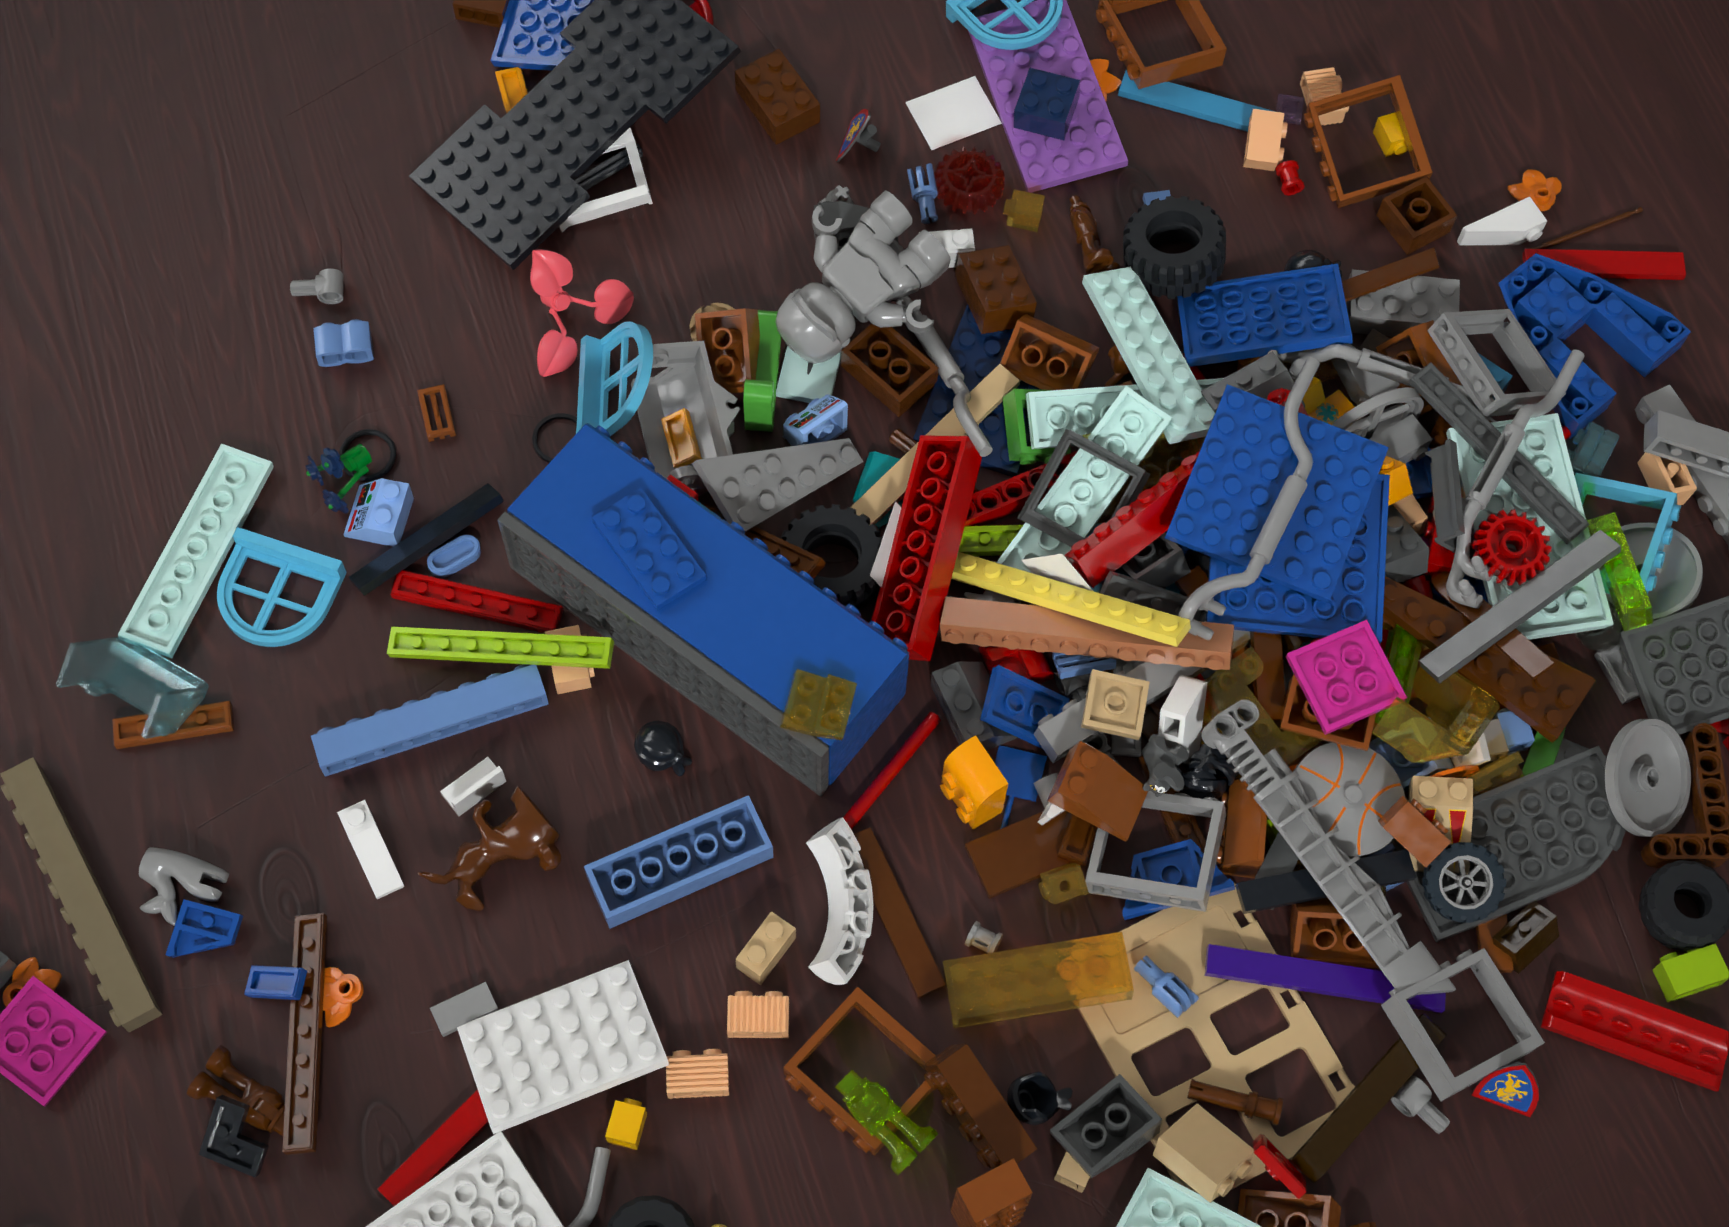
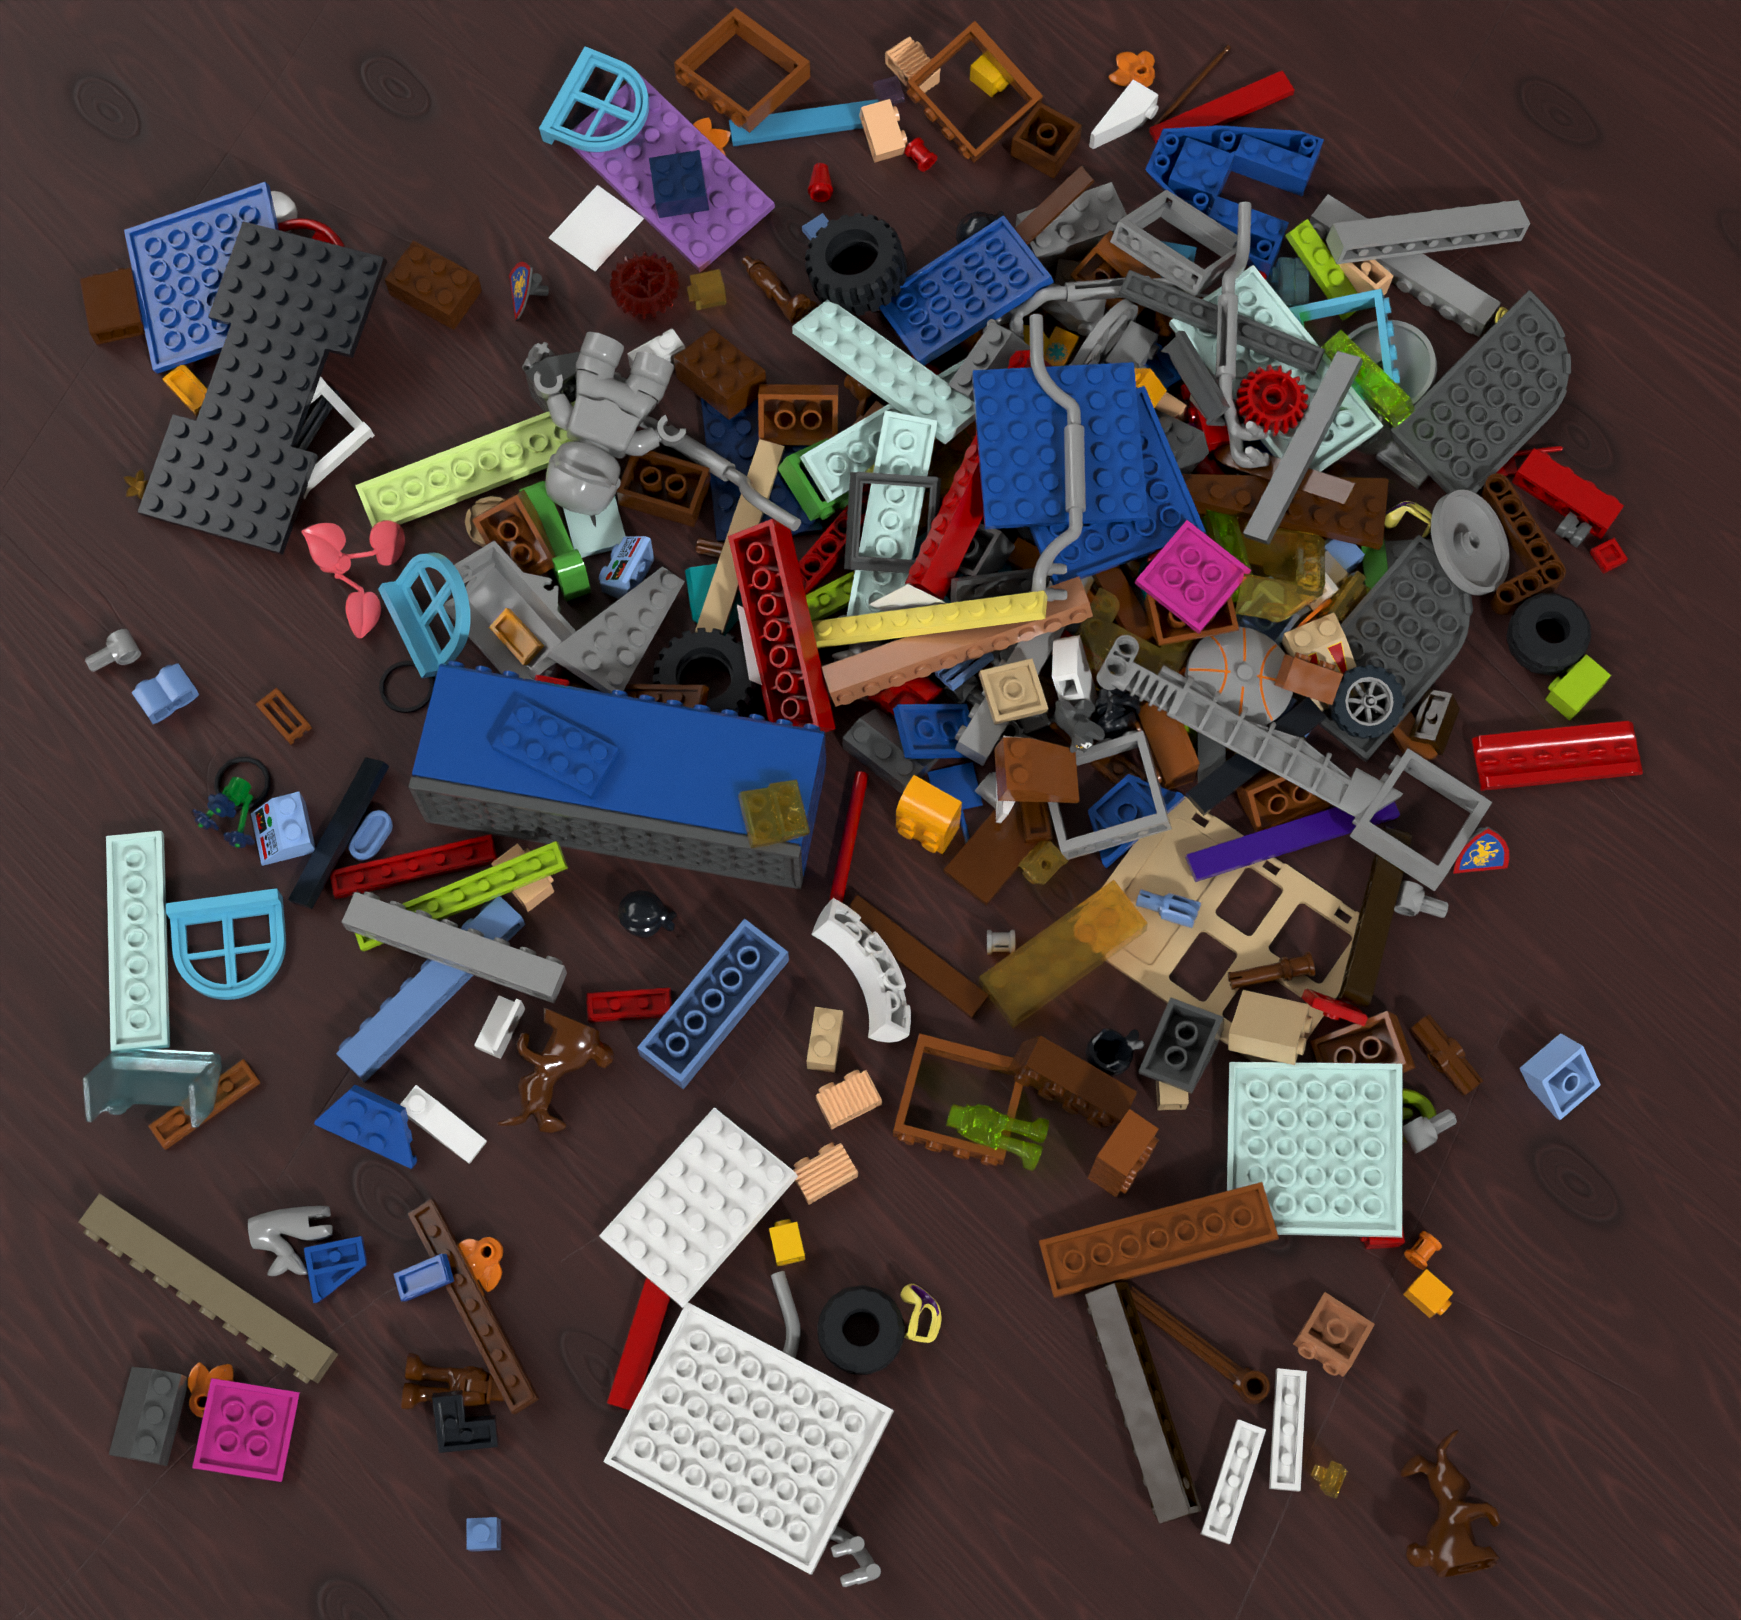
camera: 25 degrees left, 5 degrees up
(307, 816) = (371, 1124): none -> blue wing
(421, 152) = (137, 485): none -> pearl gold plant
(463, 1008) = (596, 1218): light grey tile -> none
(469, 691) = (455, 947): none -> light grey brick
(600, 823) = (628, 1004): none -> red tile
(710, 270) = (462, 471): none -> yellowish green plate
(924, 193) = (612, 315): medium blue arm -> none
(1180, 164) = (820, 184): none -> red cone
(1585, 717) = (1395, 514): none -> light yellow piece
(1629, 444) = (1320, 263): none -> lime plate

